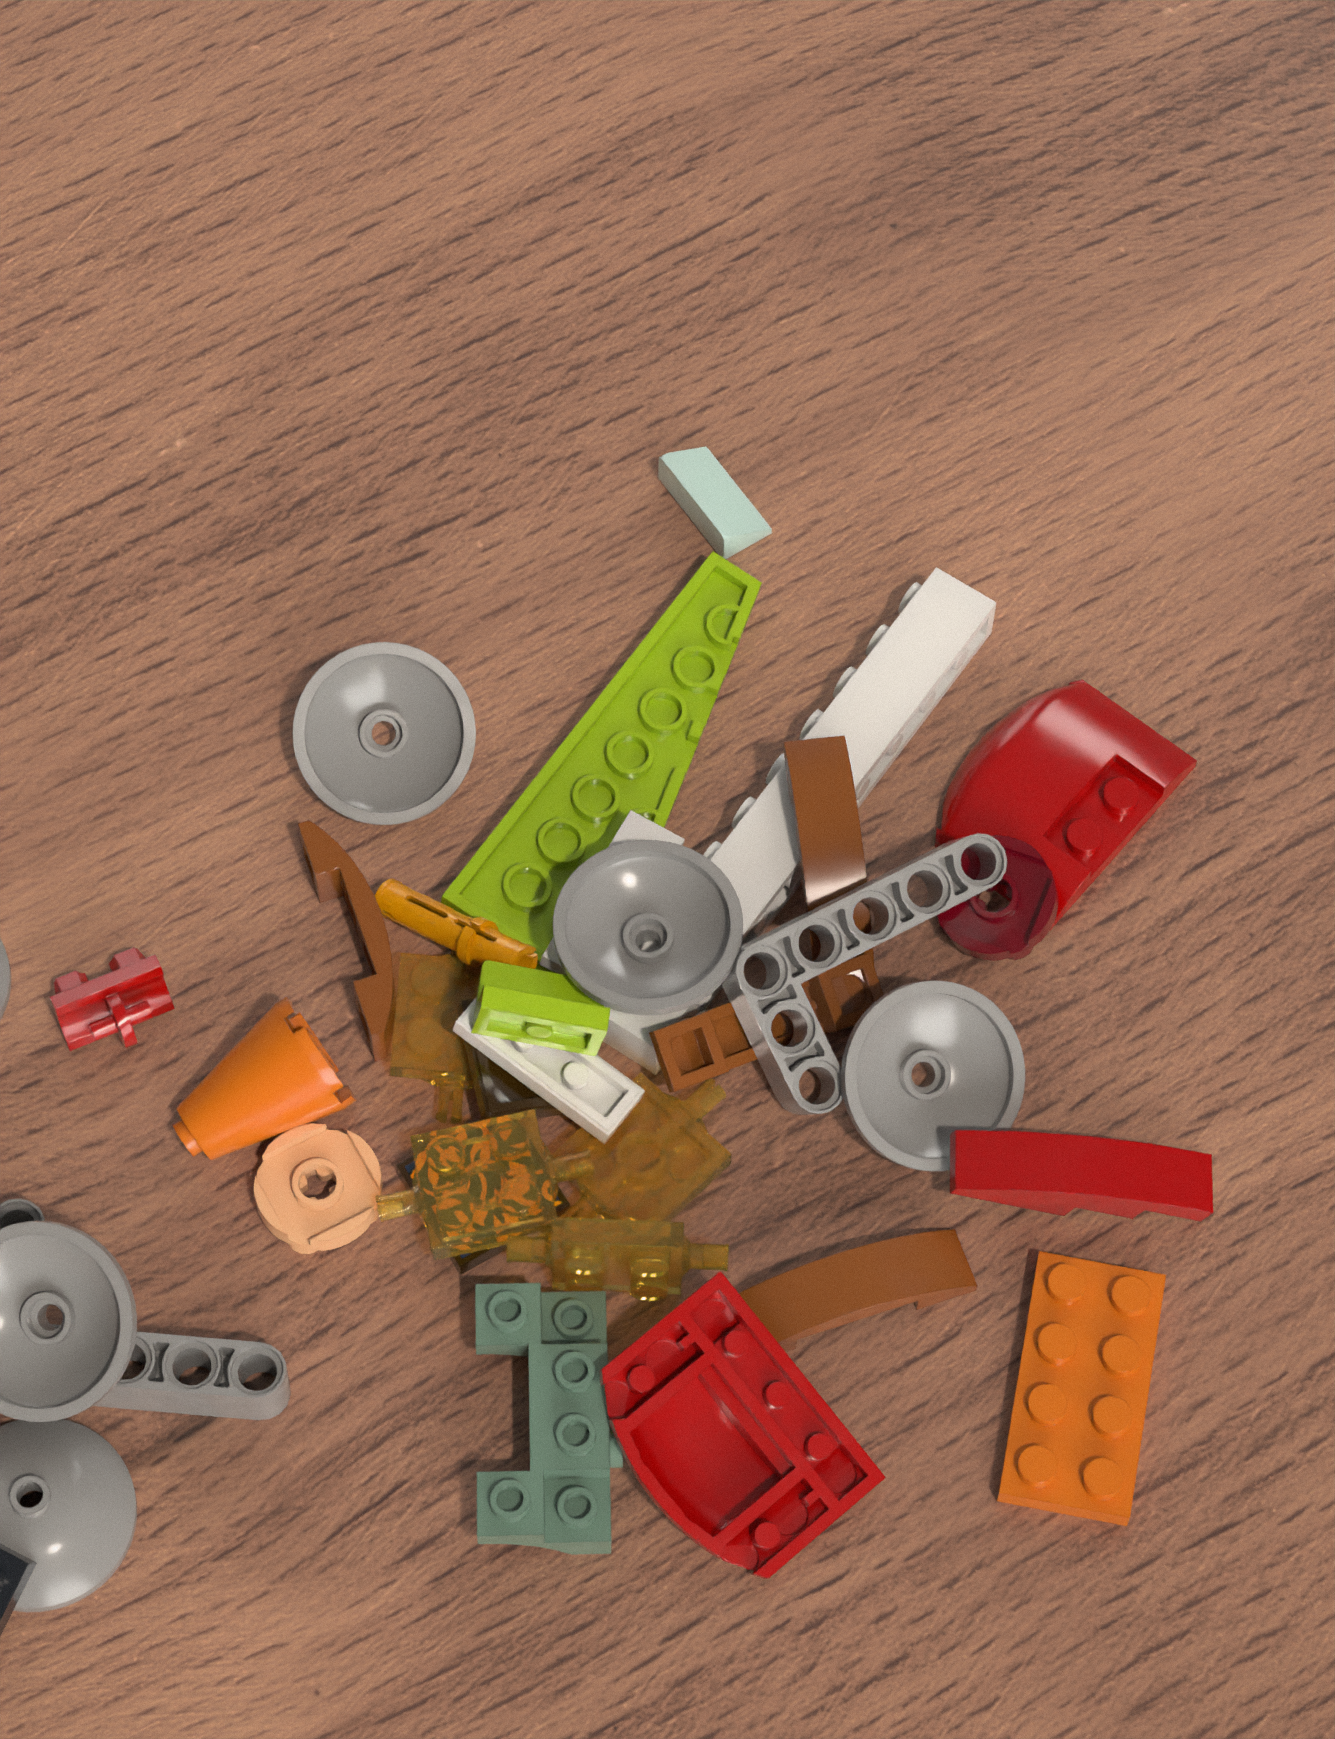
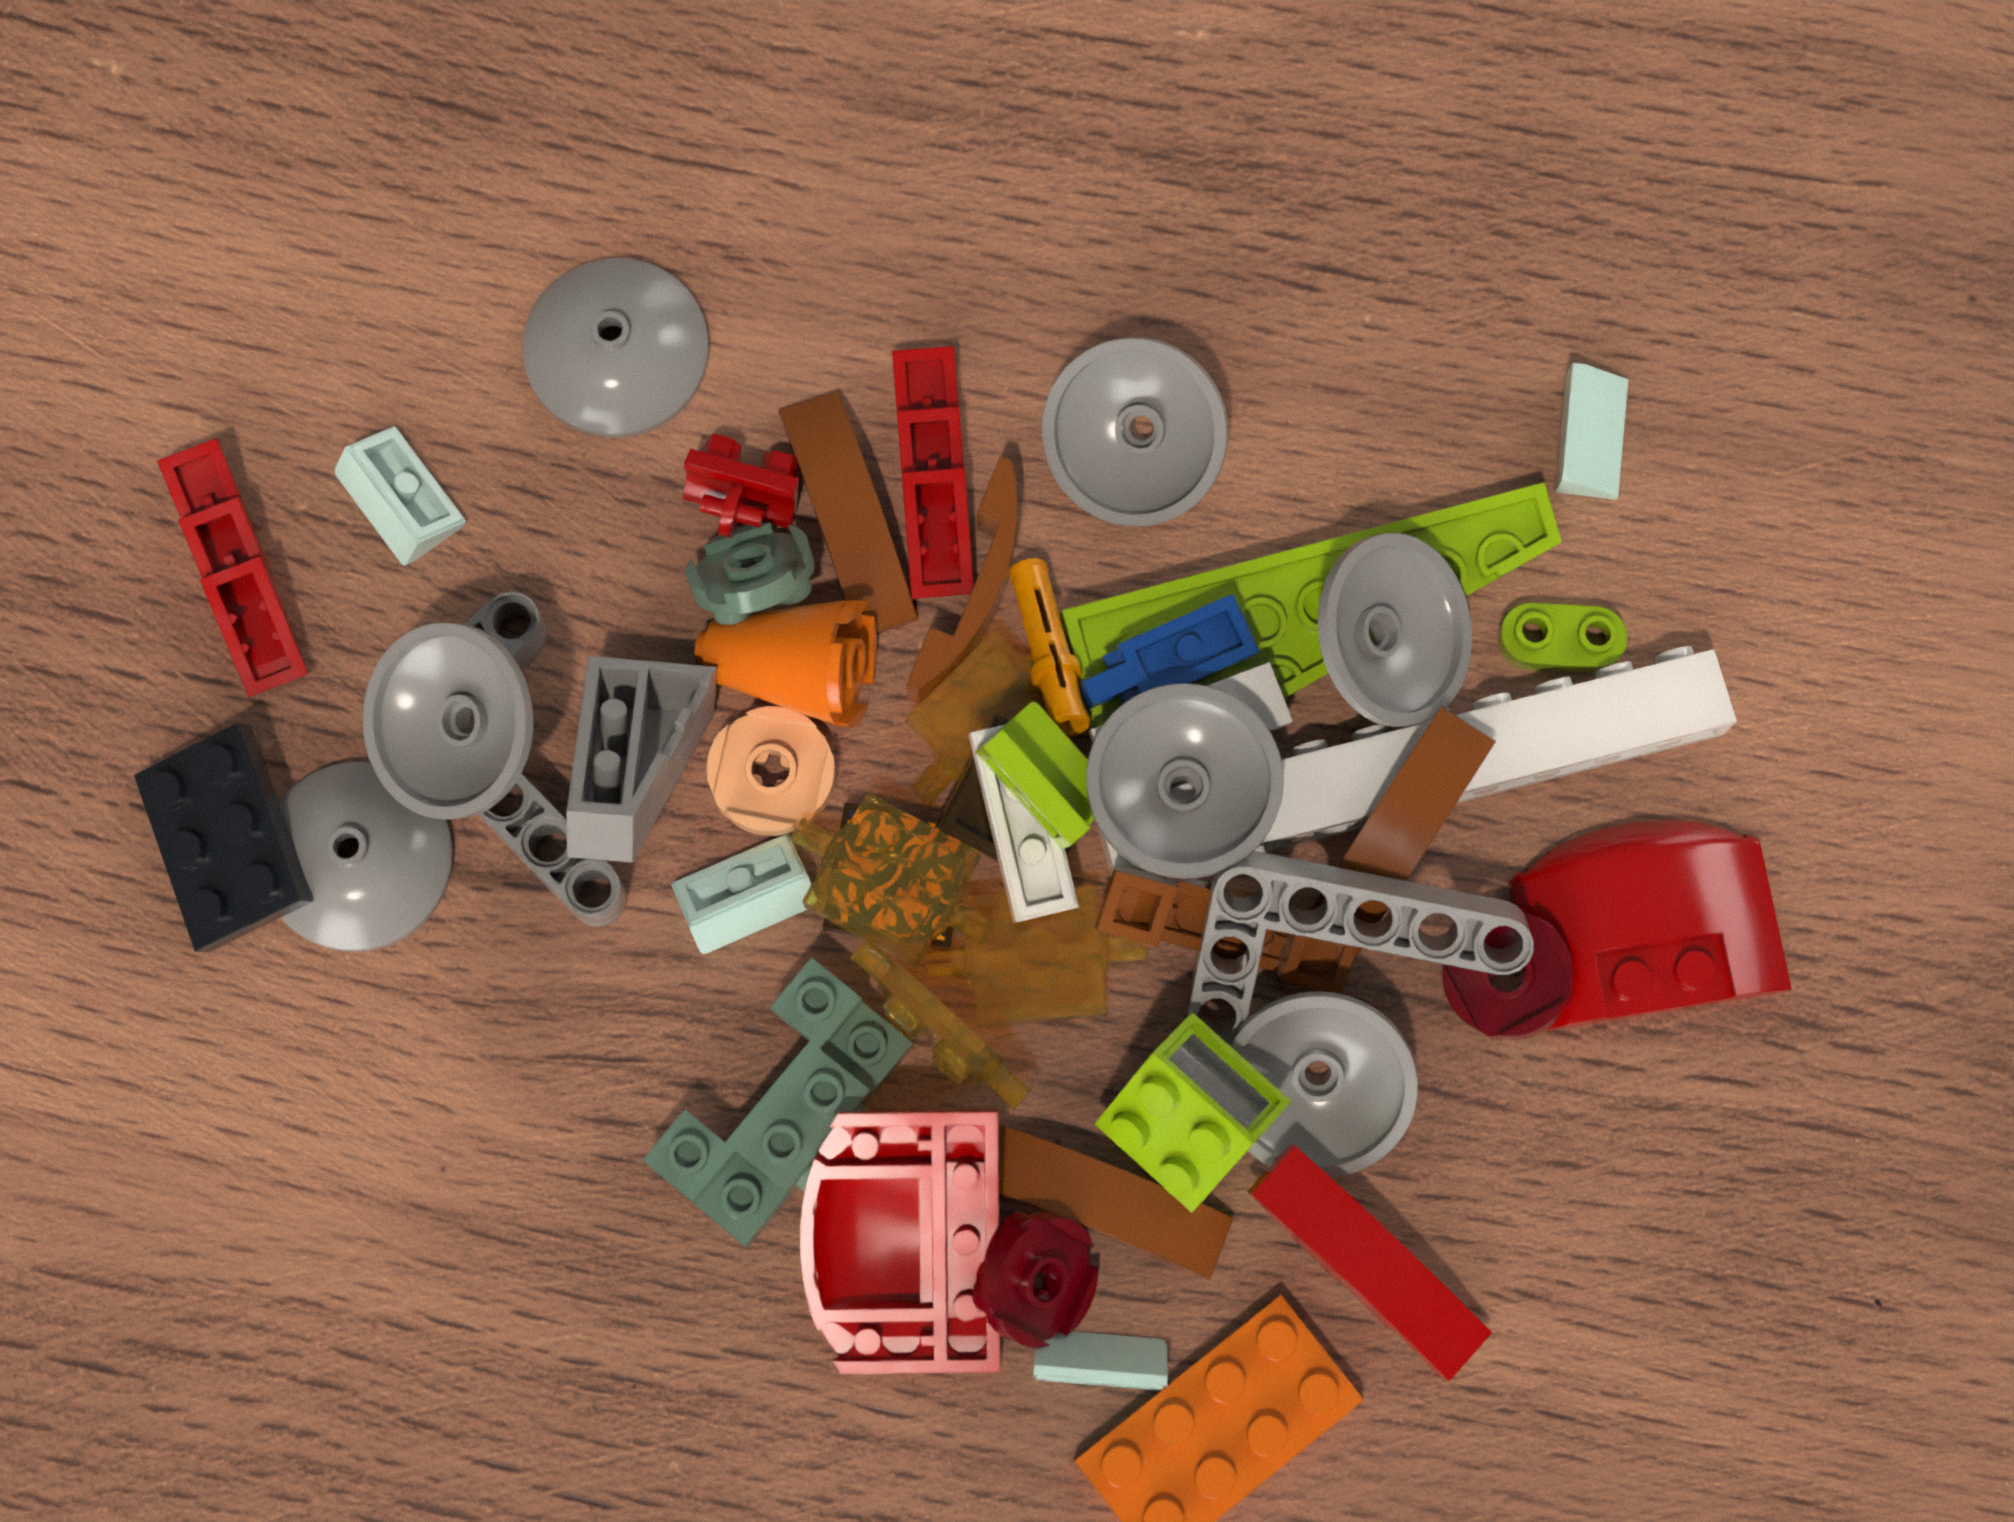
camera: 40 degrees right, 15 degrees up
(177, 1050) = (751, 572): none -> sand green plate
(194, 1244) = (631, 749): none -> light grey wedge
(207, 953) = (848, 509): none -> dark orange slope
(251, 882) = (932, 472): none -> red slope
(376, 1294) = (743, 893): none -> light aqua slope
(561, 843) = (1174, 653): none -> blue hinge
(702, 717) = (1395, 629): none -> light grey dish
(823, 648) = (1564, 637): none -> lime plate
(833, 1359) = (1007, 1277): none -> dark red plate
(862, 1163) = (1192, 1112): none -> lime piece
(953, 1409) = (1103, 1361): none -> light aqua slope

